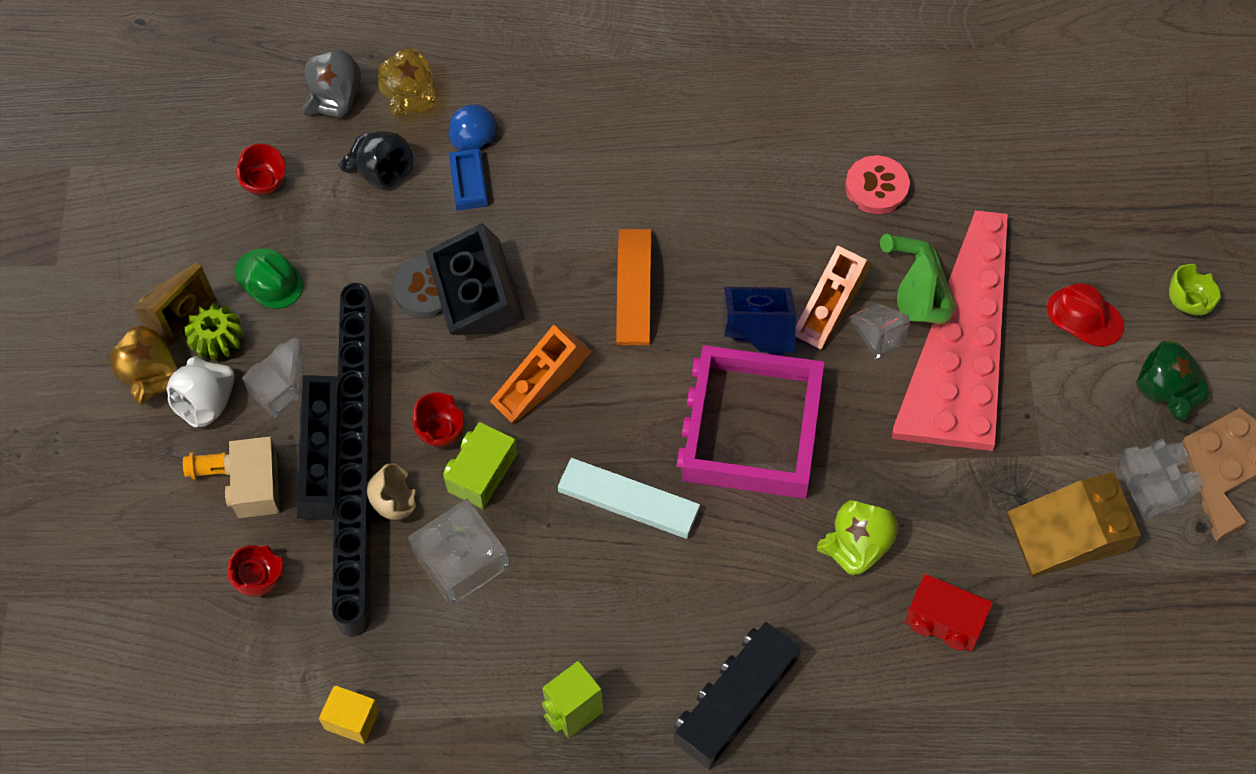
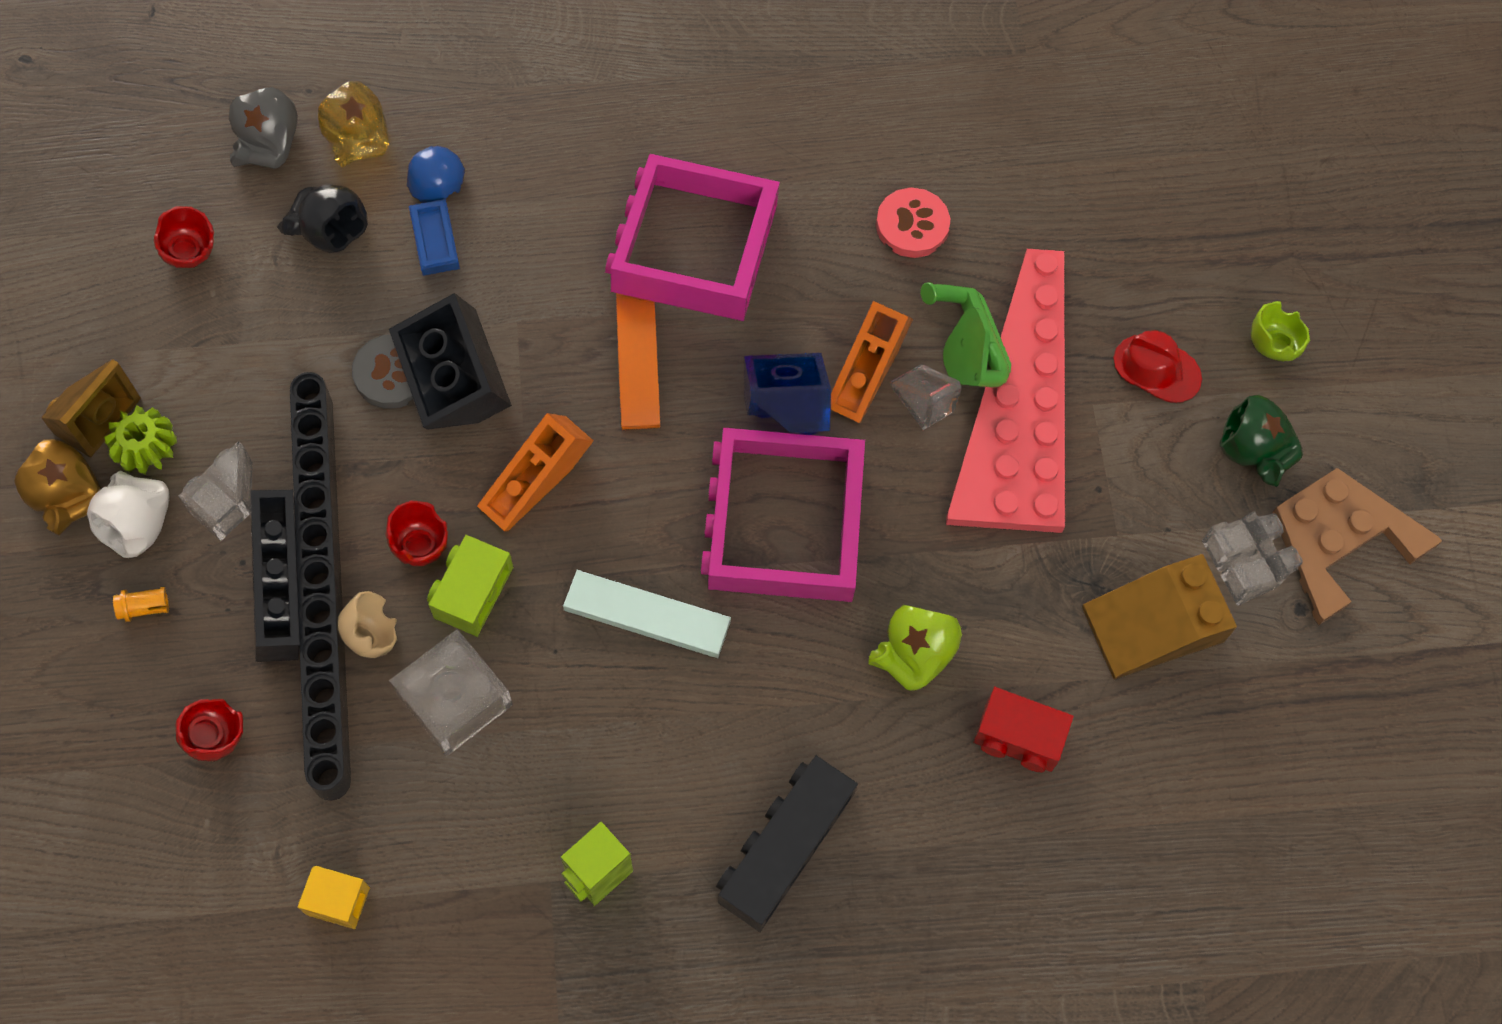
camera: 10 degrees left, 5 degrees up
(252, 477) = (199, 616): tan brick -> none
(269, 278) = (203, 369): green piece -> none
(676, 230) = (681, 289): none -> dark pink window

